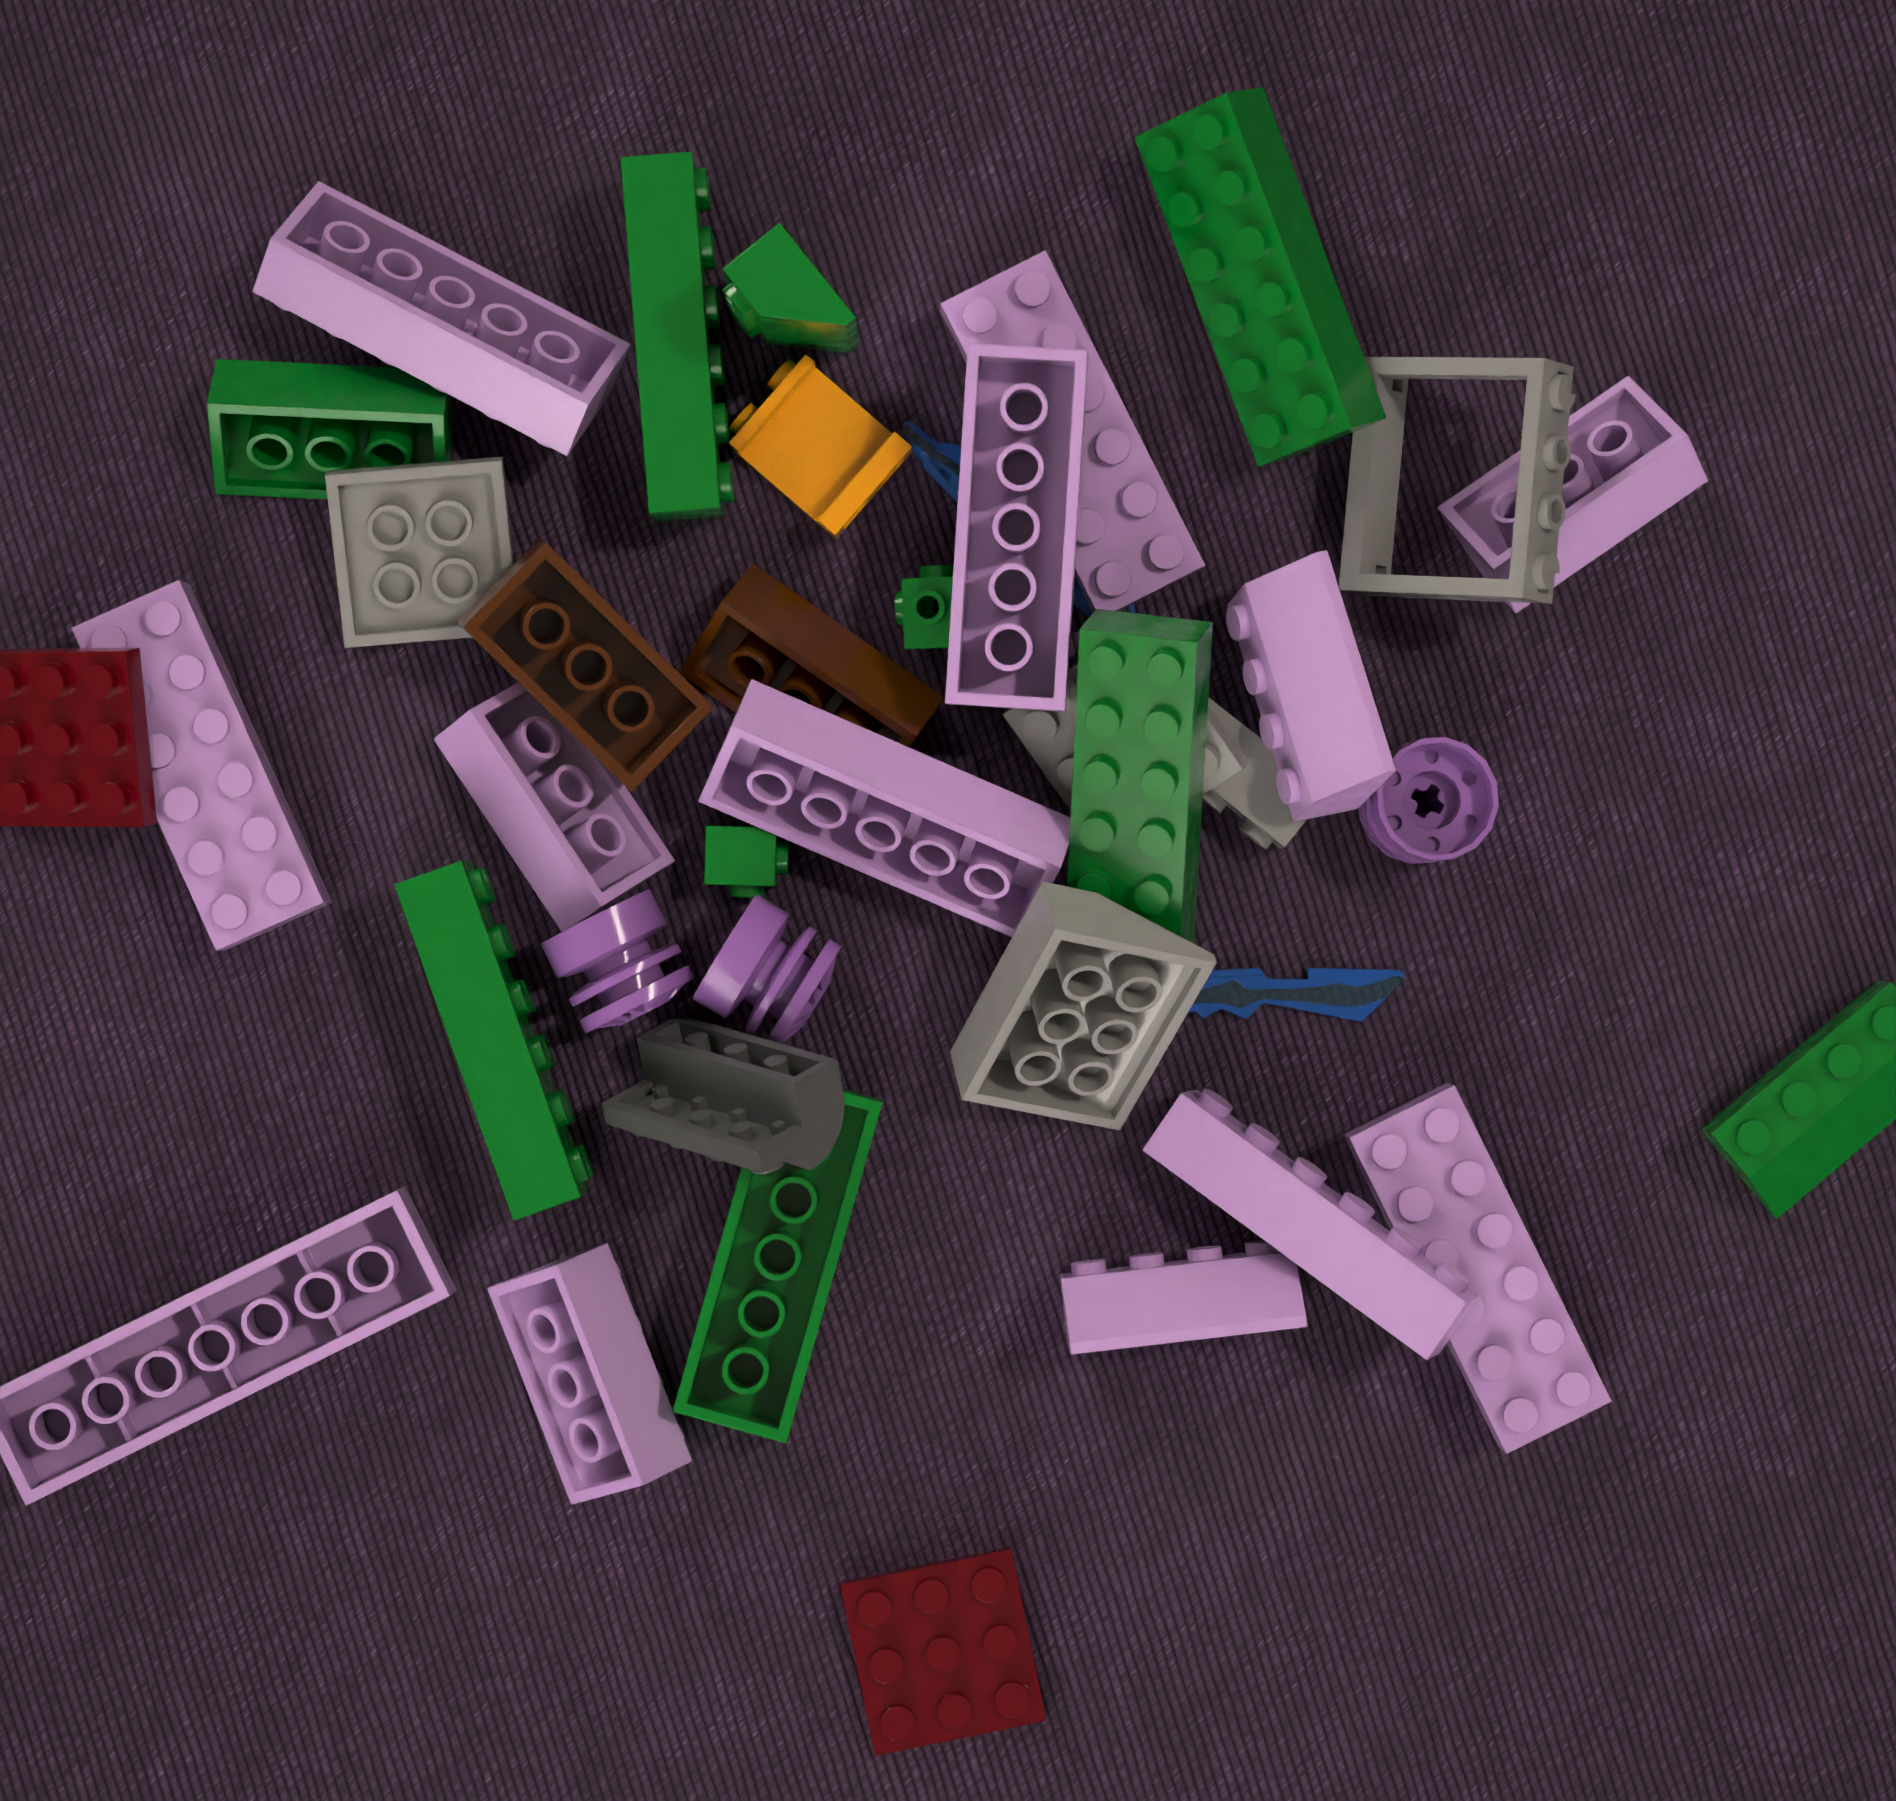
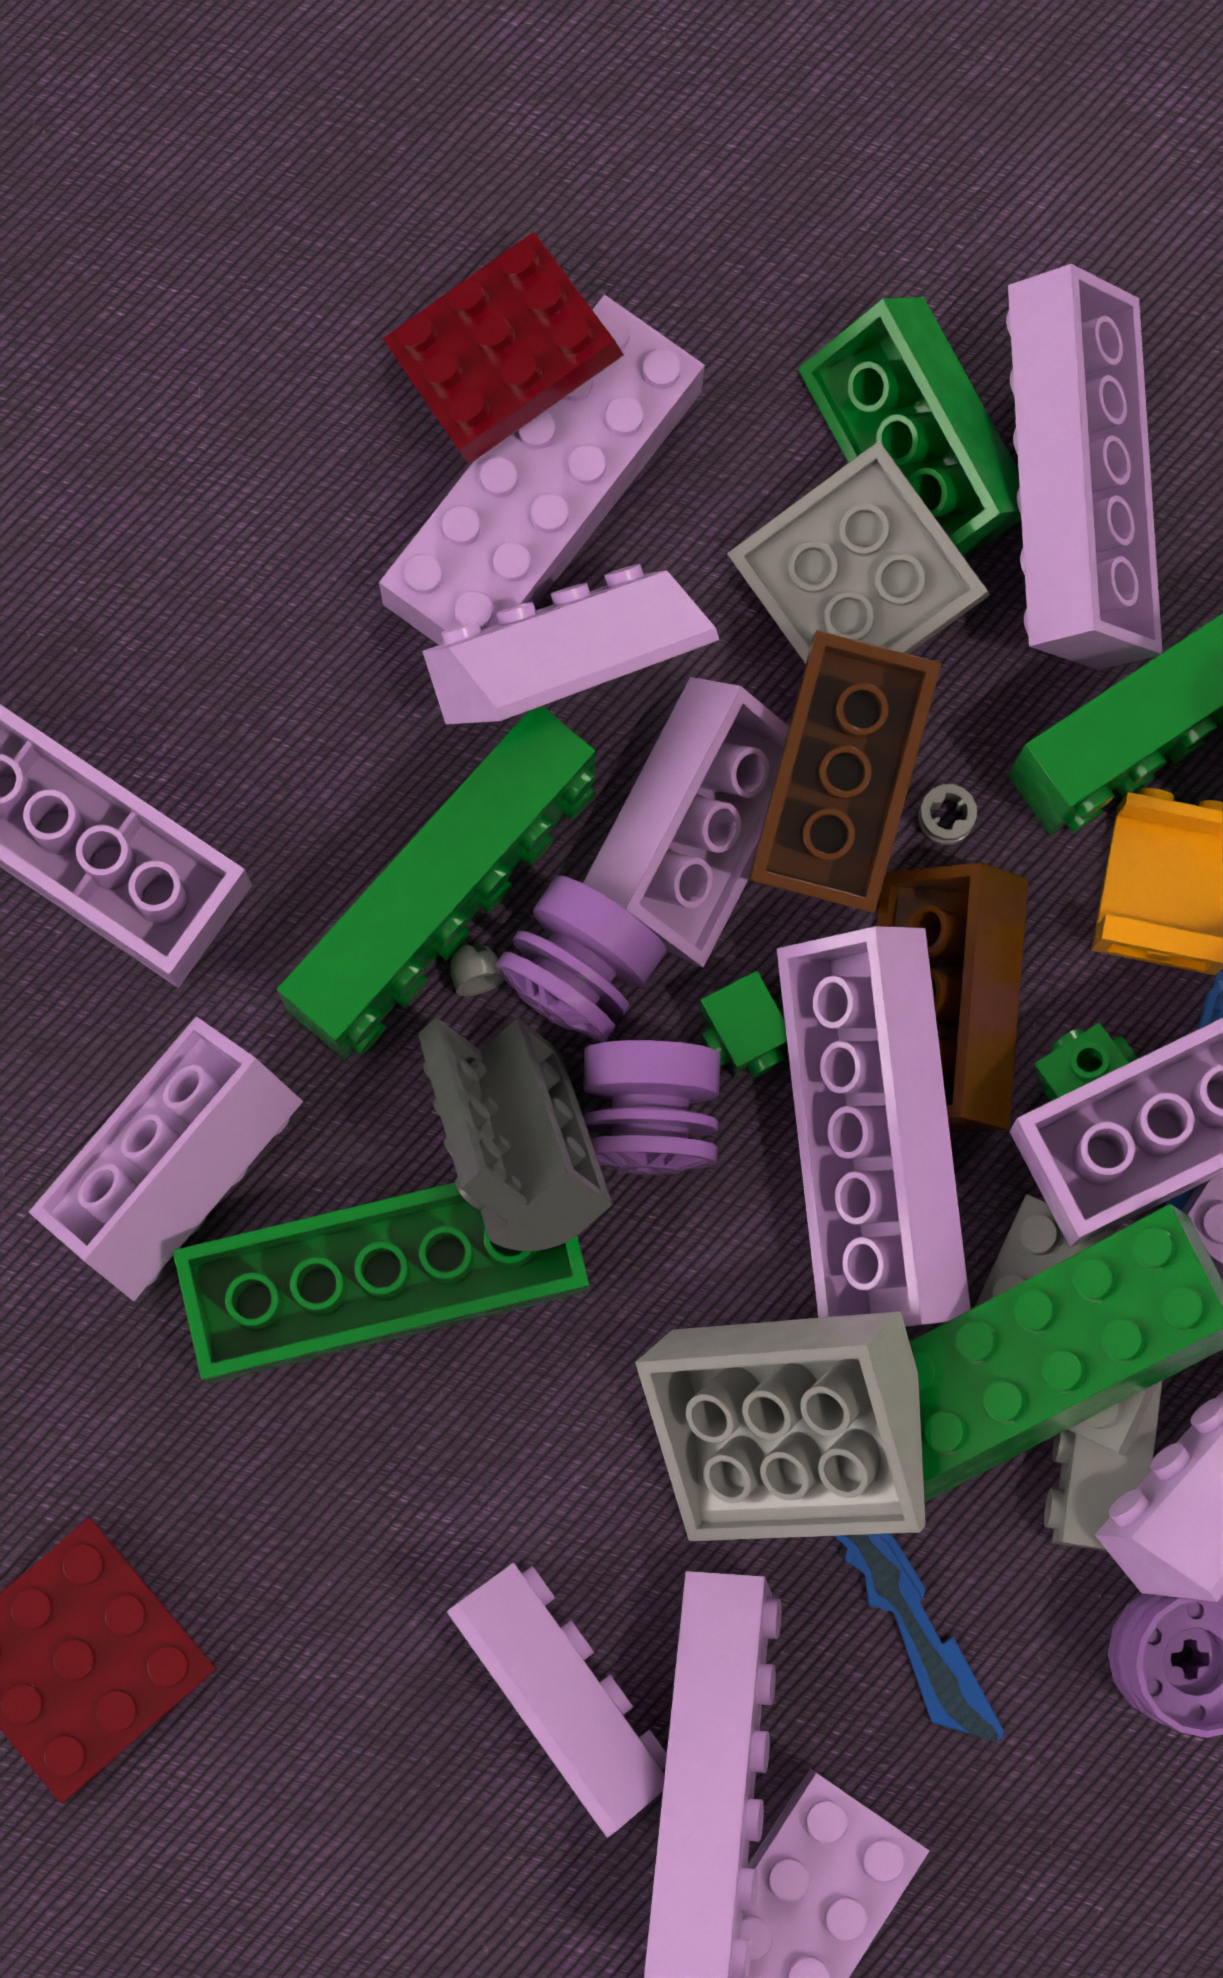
camera: 55 degrees right, 10 degrees down
(359, 832) = (565, 646): none -> lavender slope
(574, 1047) = (474, 970): none -> light grey hinge
(643, 595) = (960, 828): none -> light grey bush

